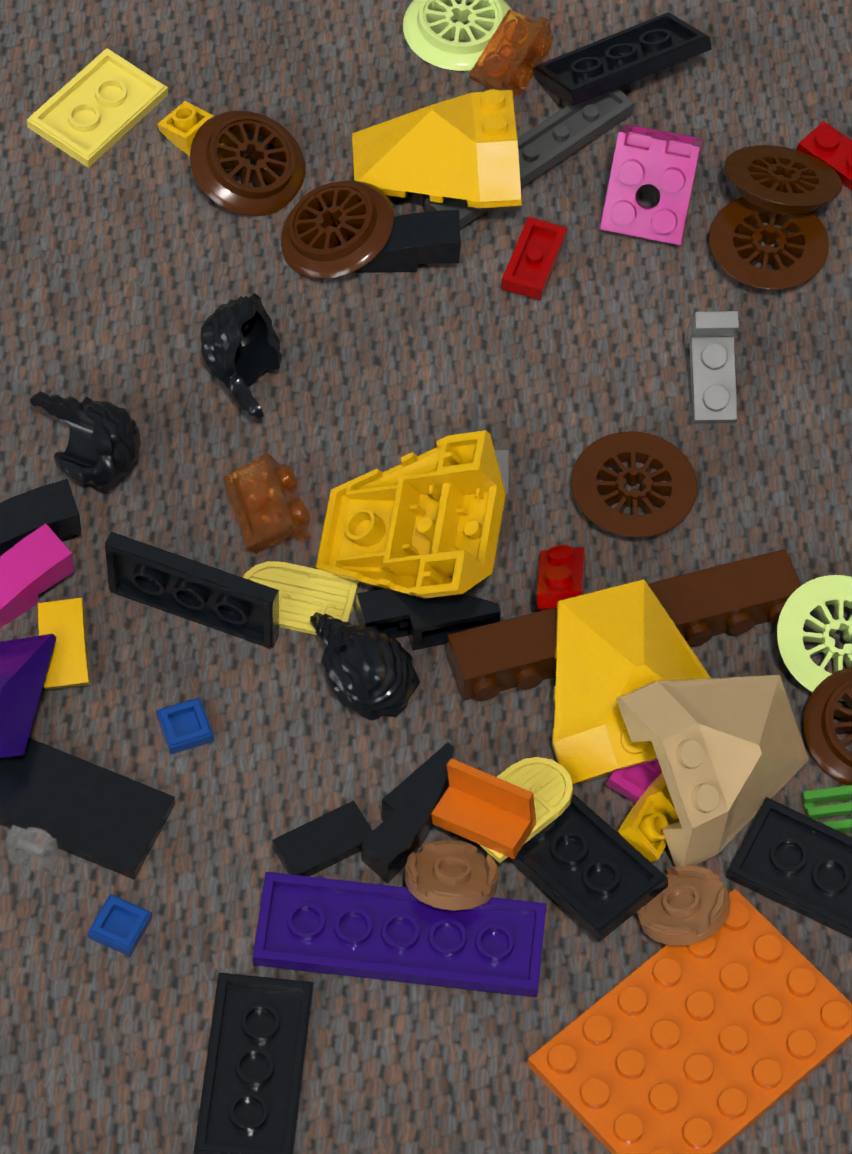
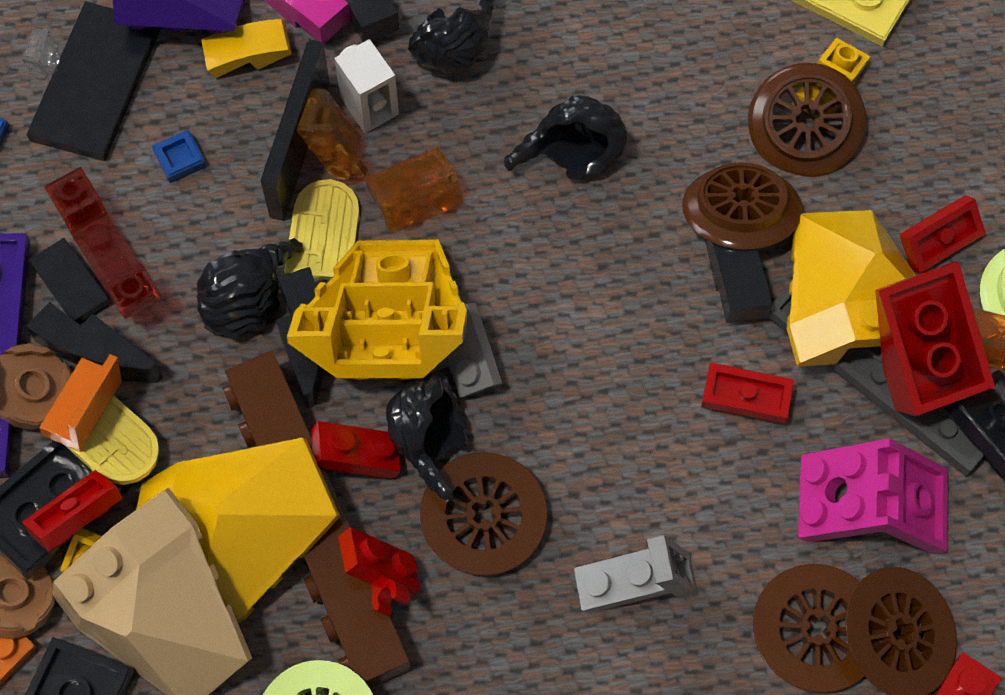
camera: 85 degrees right, 10 degrees up
(151, 513) = (366, 85): none -> white brick
(226, 553) = (331, 136): none -> clear orange bracket
(261, 816) = (102, 244): none -> clear red slope
(390, 77) = (942, 234): none -> red plate
(534, 85) = (931, 341): none -> red slope
(544, 518) = (426, 425): none -> black hair
(608, 822) = (72, 510): none -> red plate
(692, 559) = (382, 565): none -> red plate

